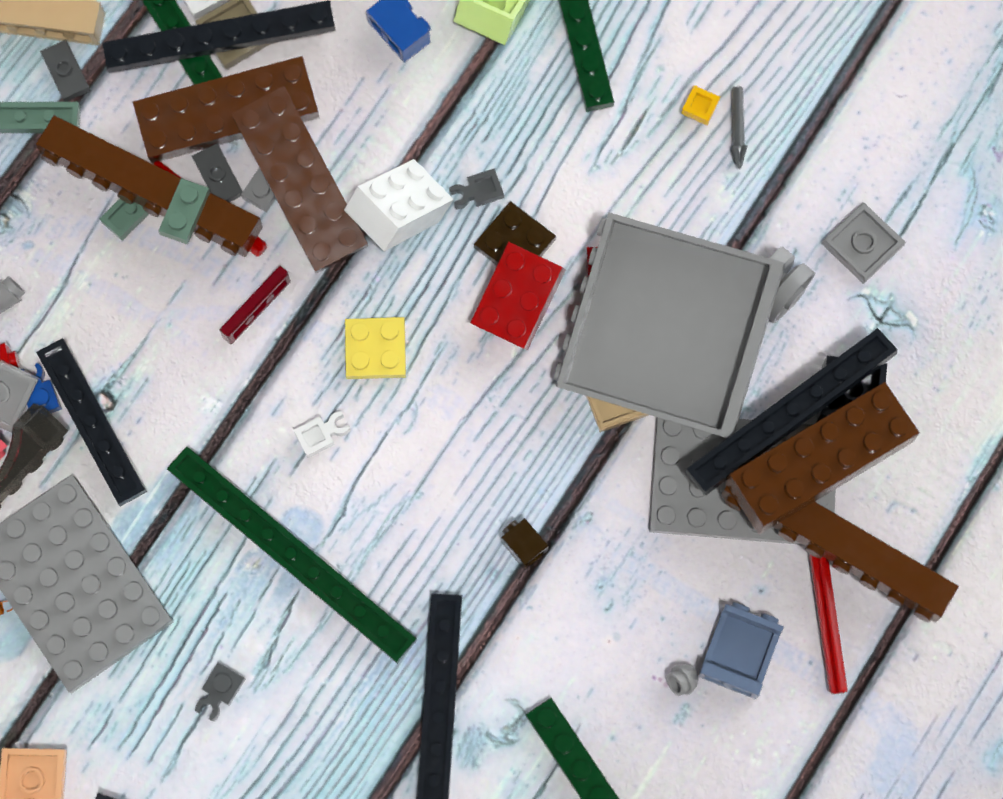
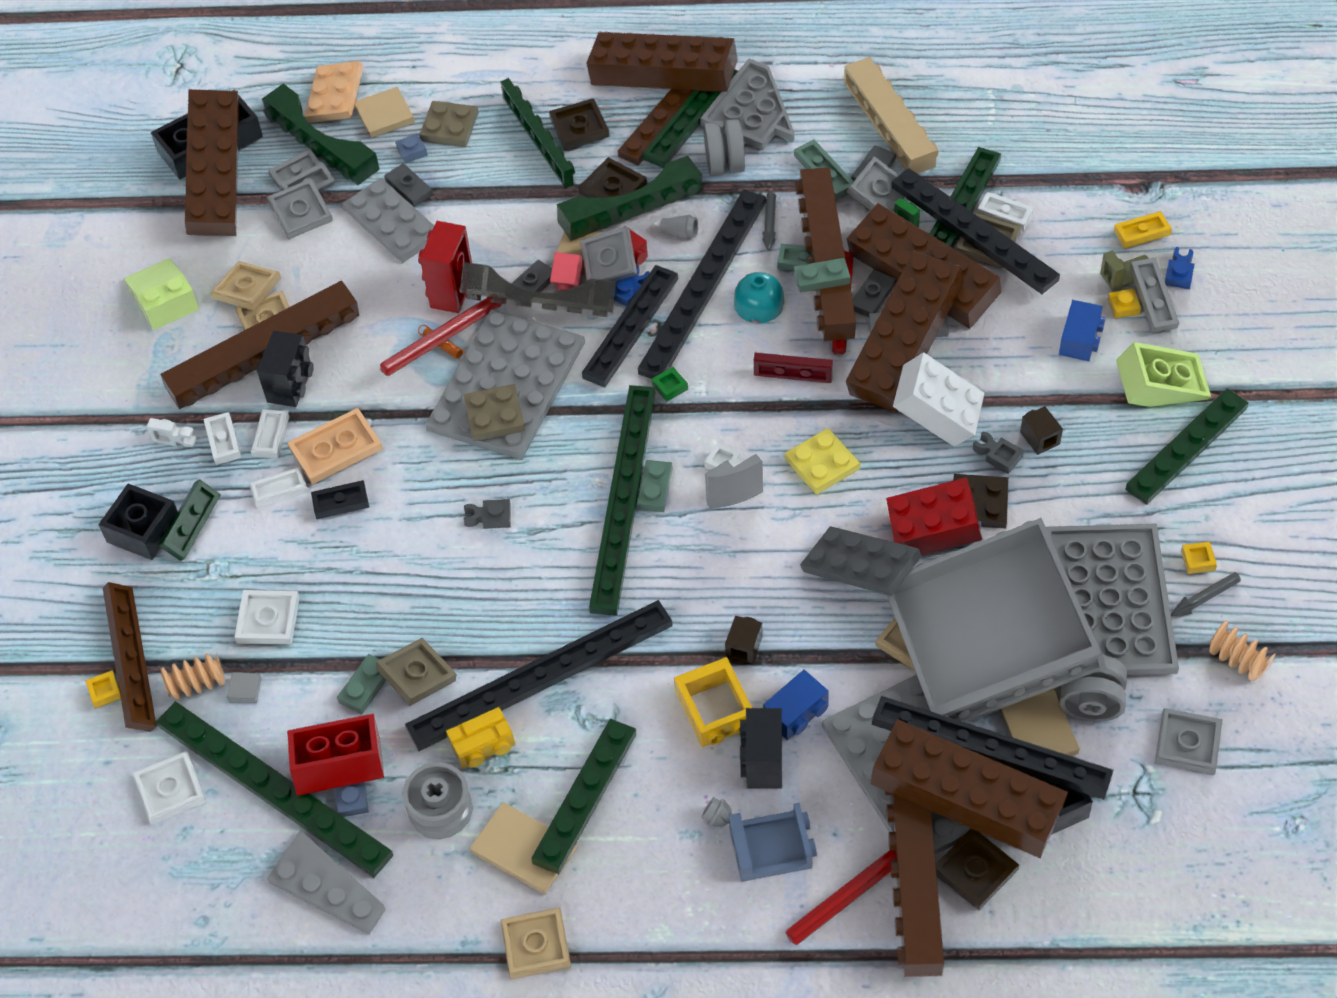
camera: 60 degrees right, 20 degrees down
(76, 222) = (768, 233): none -> dark grey piece
(88, 322) = (702, 285): none -> black plate
(97, 89) = (875, 185): none -> light grey tile
(109, 618) = (494, 412): none -> dark tan plate
(147, 281) = (759, 297): none -> teal cylinder
(150, 81) = (907, 211): none -> green plate
(190, 429) = (669, 384): none -> green plate
(296, 516) = (654, 486): none -> sand green plate
(355, 448) = (734, 485): none -> light grey slope
(480, 138) = (1041, 430): none -> dark brown brick
(518, 389) = (861, 560): none -> dark grey plate
(608, 605) = (702, 680): none -> yellow window
(622, 541) = (800, 703): none -> blue brick
(653, 600) = (761, 748): none -> black brick
(691, 191) = (1121, 592): none -> light grey plate
(784, 356) = (1041, 722): none -> tan tile
(814, 140) = (1239, 652): none -> light nougat piece
(874, 498) = (976, 868): none -> dark brown plate

